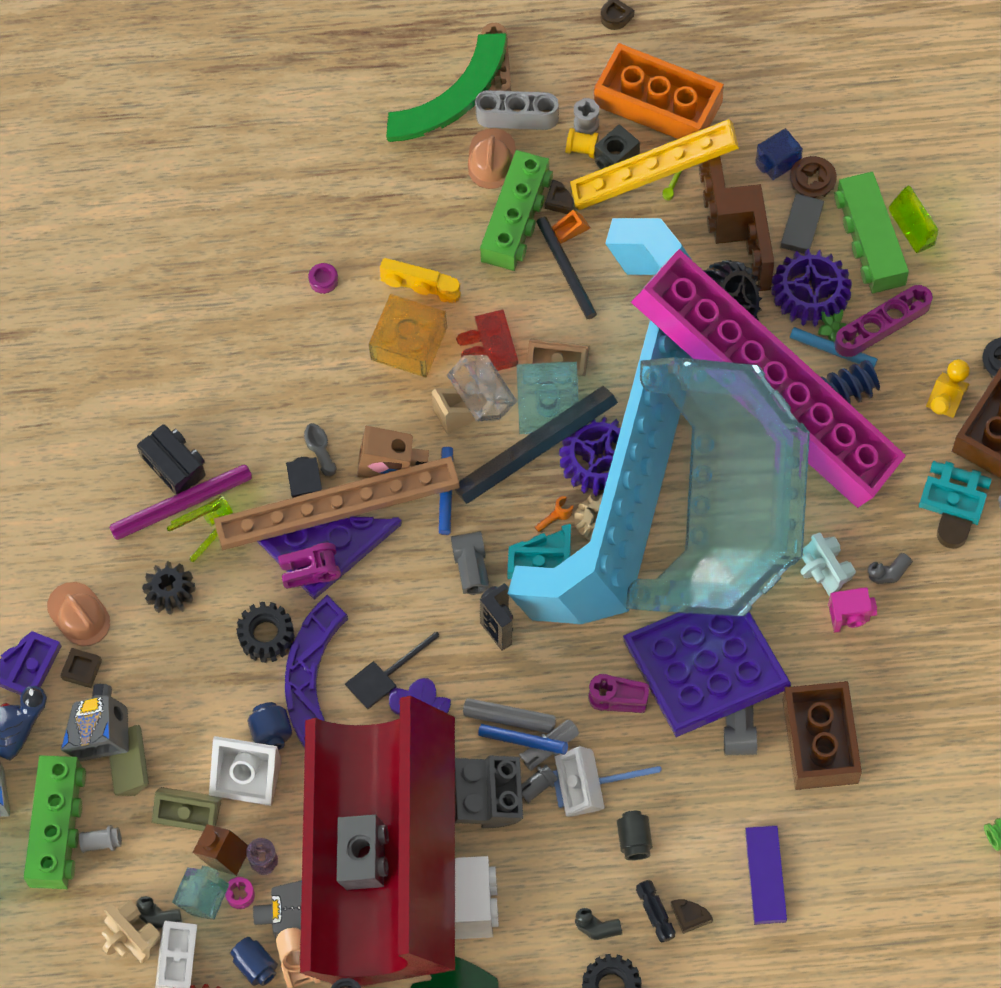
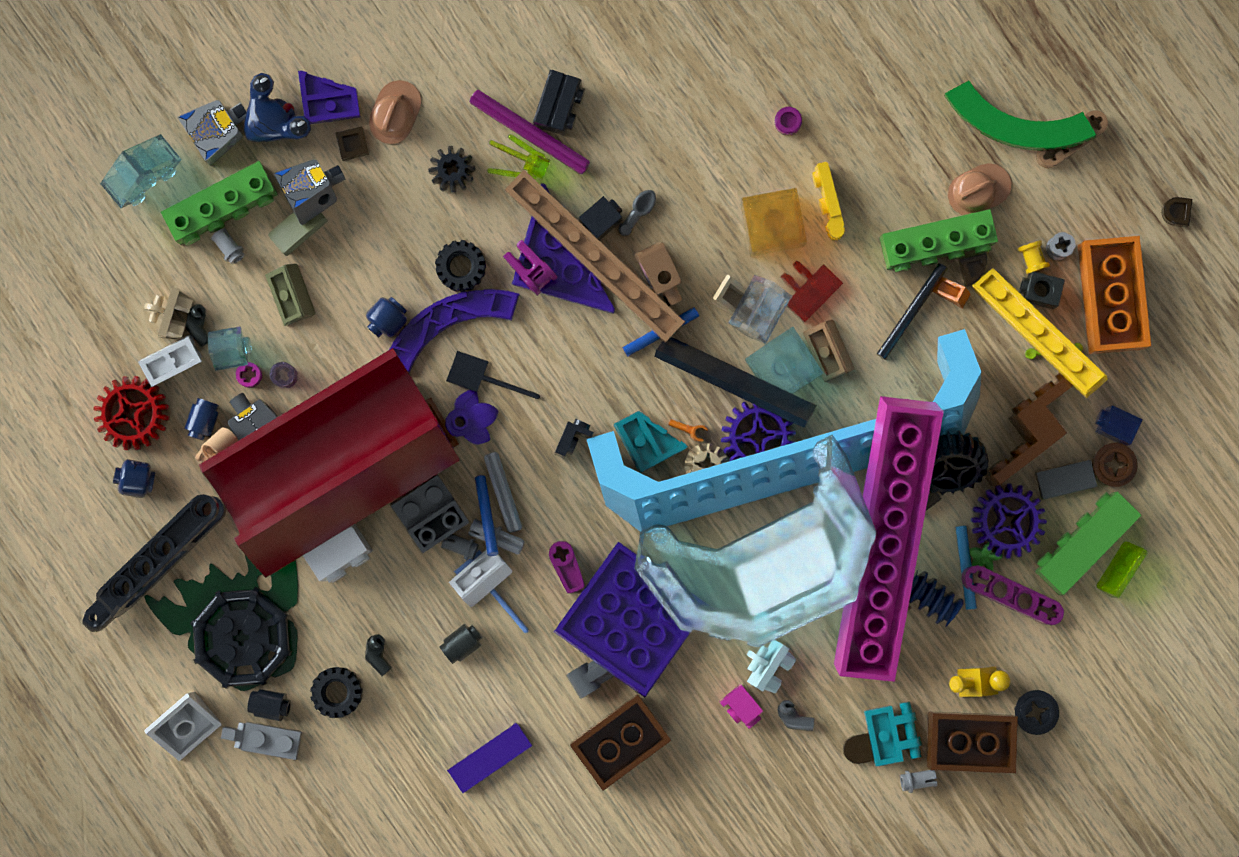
camera: 55 degrees right, 20 degrees up
(221, 849) = (268, 342): reddish brown brick -> none
(244, 770) = (340, 320): white slope -> none
(353, 835) = (297, 454): dark grey brick -> none
(470, 556) = (615, 384): dark grey piece -> none
(506, 101) = (1033, 171): light grey beam -> none
(655, 911) = (413, 691): black axle -> none
(690, 915) = (426, 718): dark brown tile -> none

